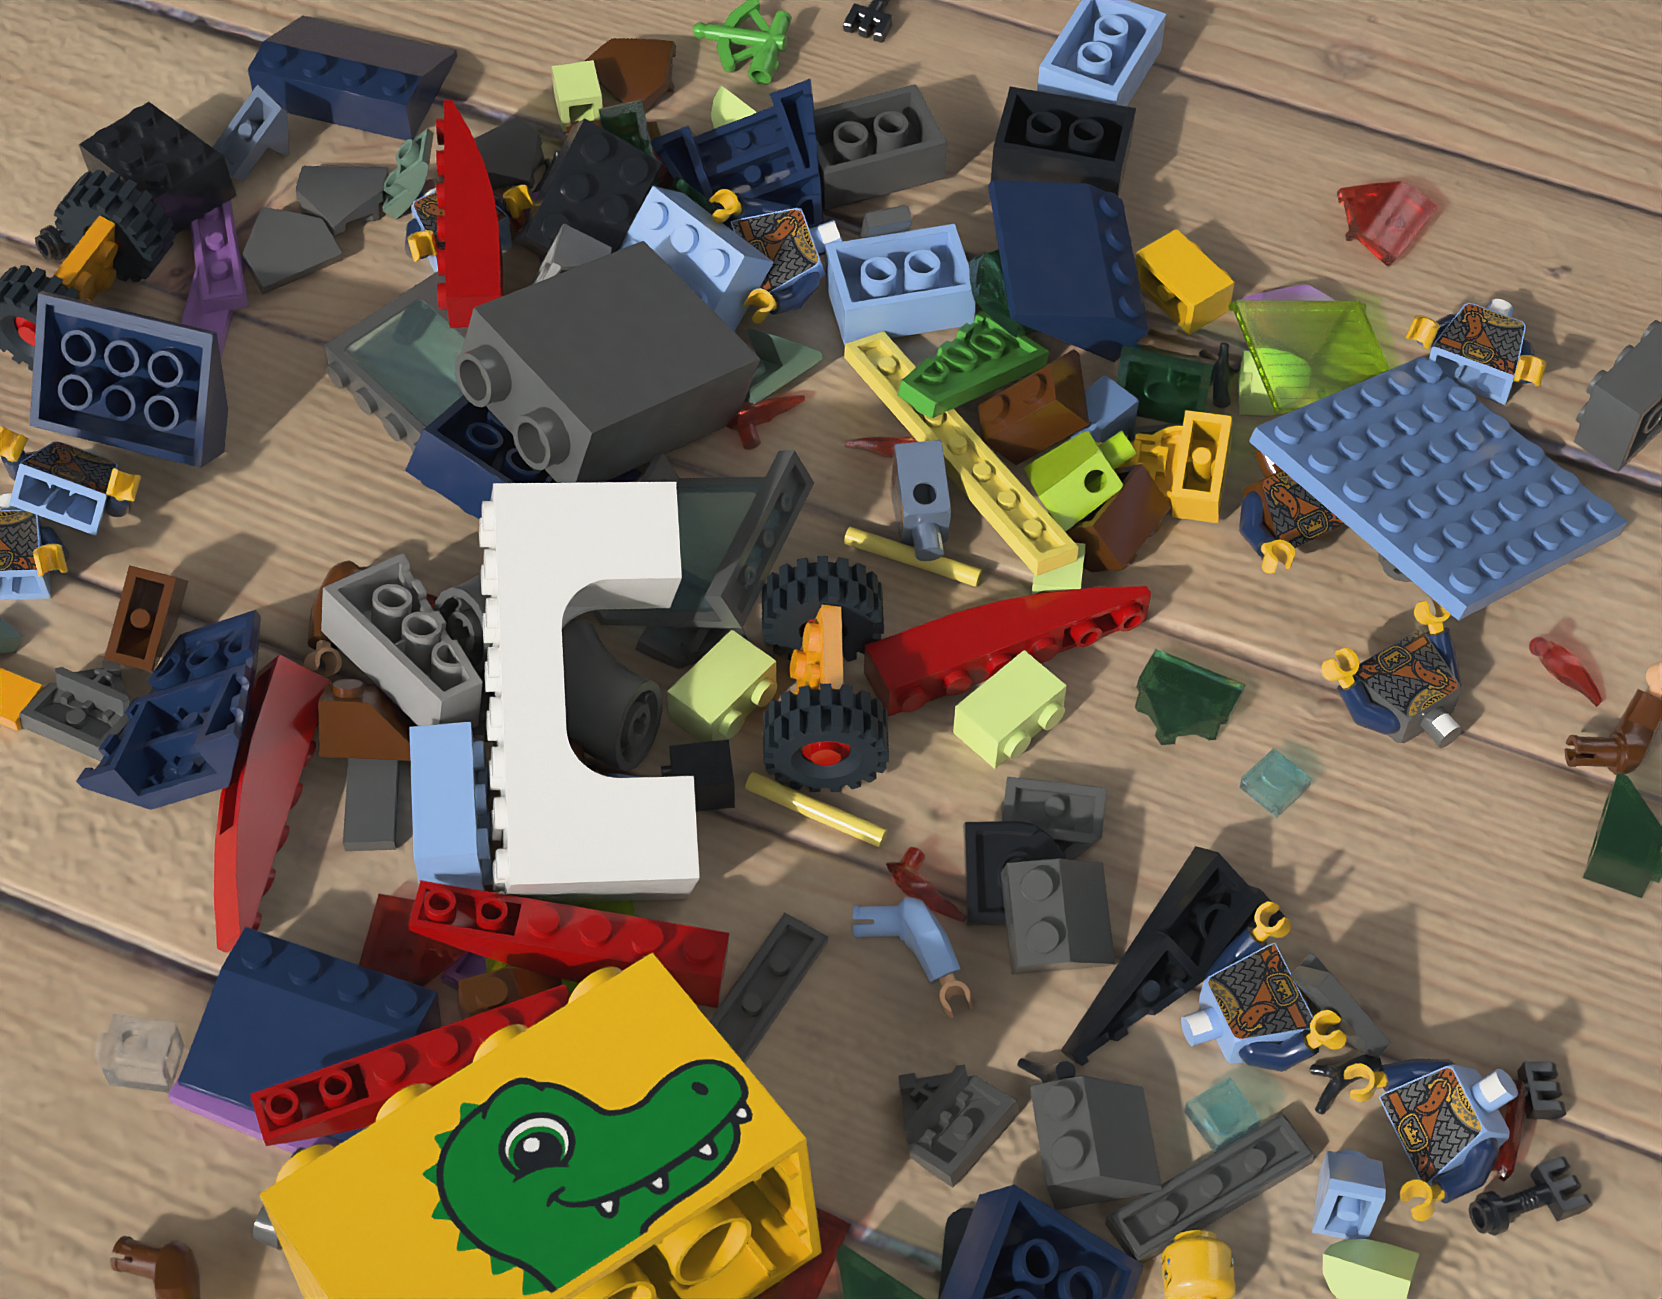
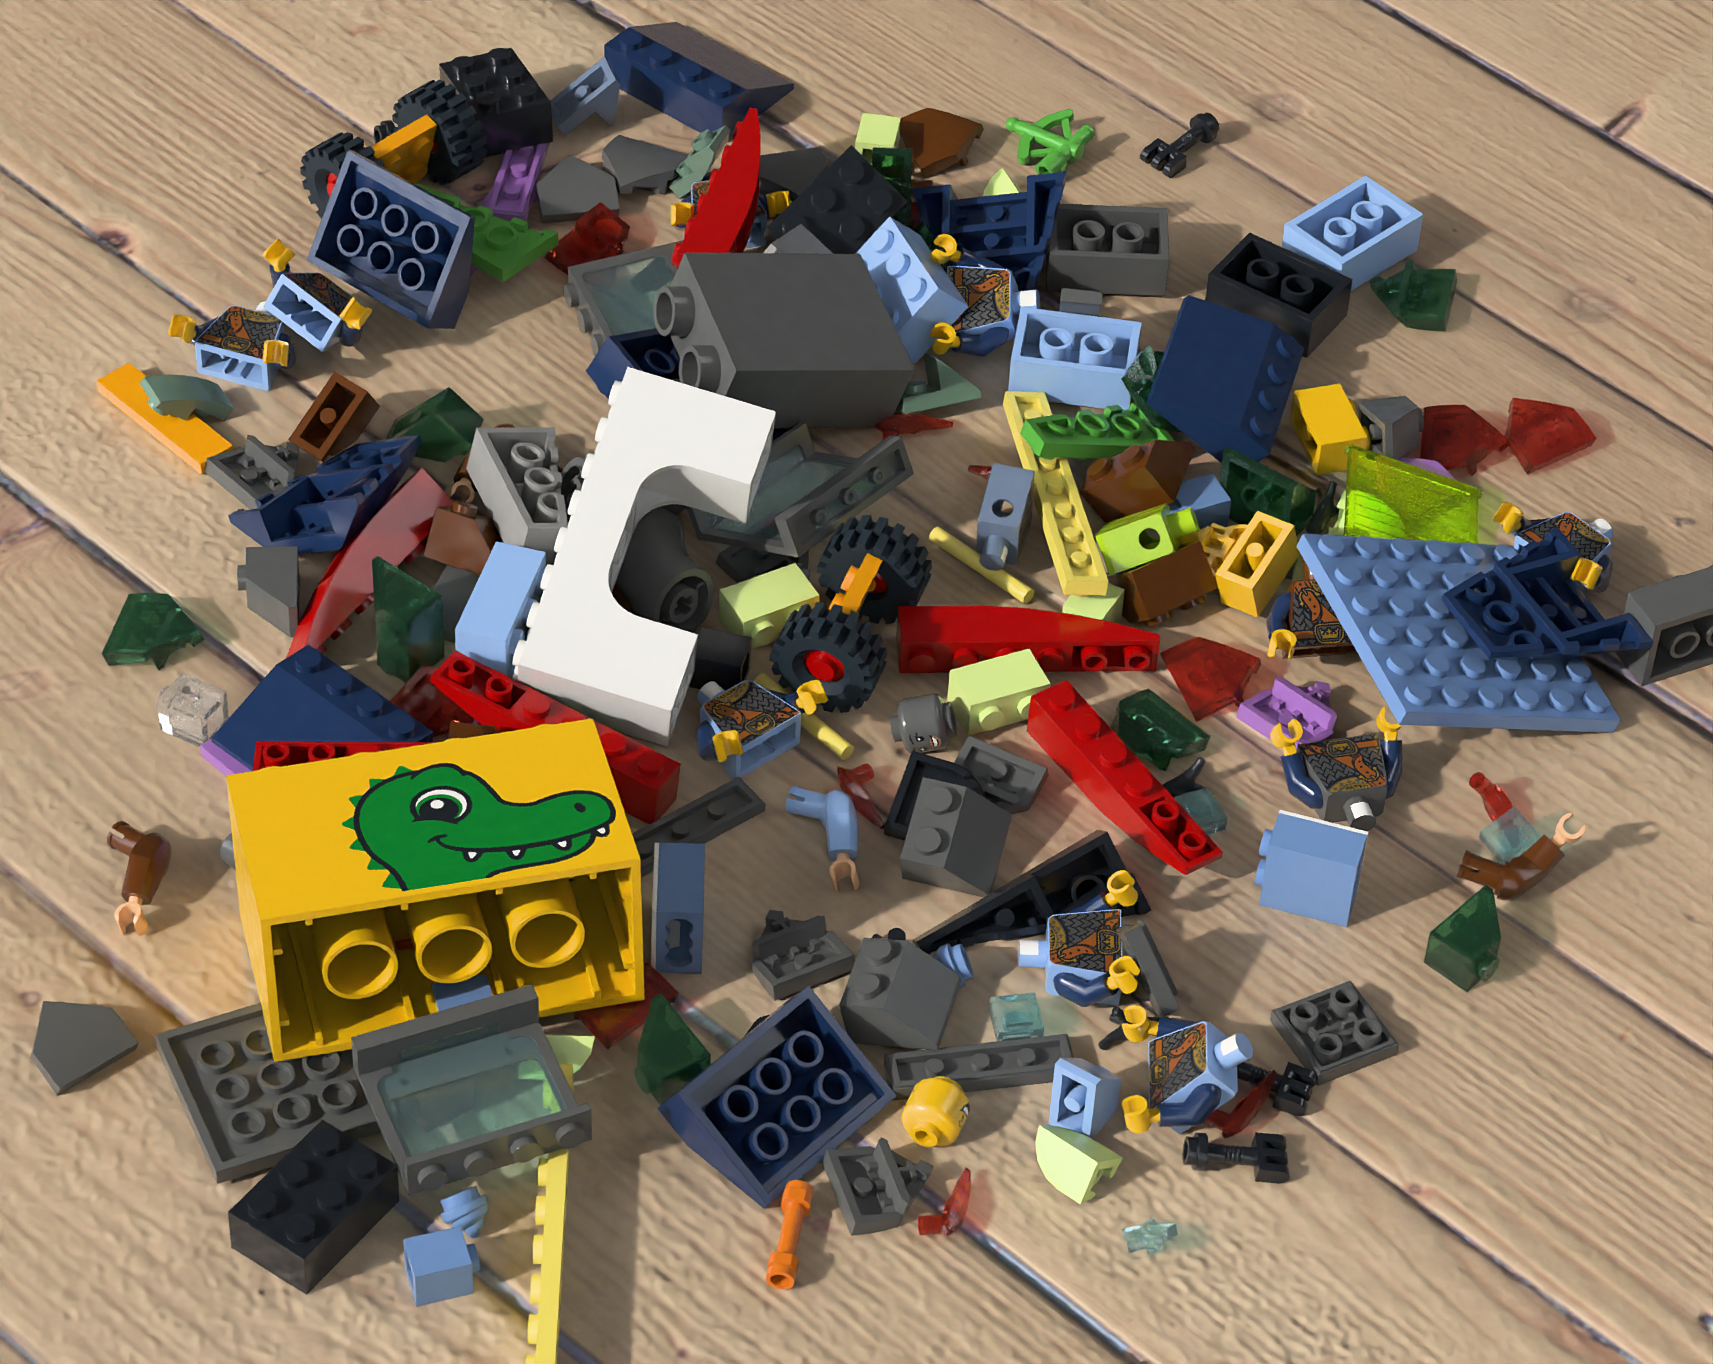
camera: 20 degrees right, 10 degrees down
(44, 962) = (149, 629): none -> clear green slope
(165, 853) = (272, 585): none -> dark grey slope
(245, 334) = (501, 245): none -> bright green wing
(265, 581) = (444, 424): none -> clear green slope
(330, 304) = (594, 237): none -> clear red slope
(339, 854) = (406, 621): none -> clear green slope
(770, 843) = (752, 723): none -> torso
(810, 1097) = (678, 908): none -> medium blue piece
(952, 777) = (924, 723): none -> dark grey head
(1123, 1068) = (956, 960): none -> medium blue plate
(1188, 101) = (1419, 296): none -> clear green slope
(1188, 778) = (1116, 779): none -> red slope
(1207, 610) = (1209, 674): none -> clear red slope
(1244, 750) = (1186, 781): none -> black bar
(1248, 258) = (1392, 425): none -> dark grey slope
(1308, 249) = (1458, 437): none -> clear red slope
(1309, 626) = (1289, 702): none -> medium lavender slope
(1440, 816) = (1311, 867): none -> medium blue piece
(1509, 439) = (1536, 611): none -> dark blue wedge
(1543, 1002) = (1334, 1032): none -> dark grey tile
(1600, 701) = (1509, 835): none -> clear light blue plate

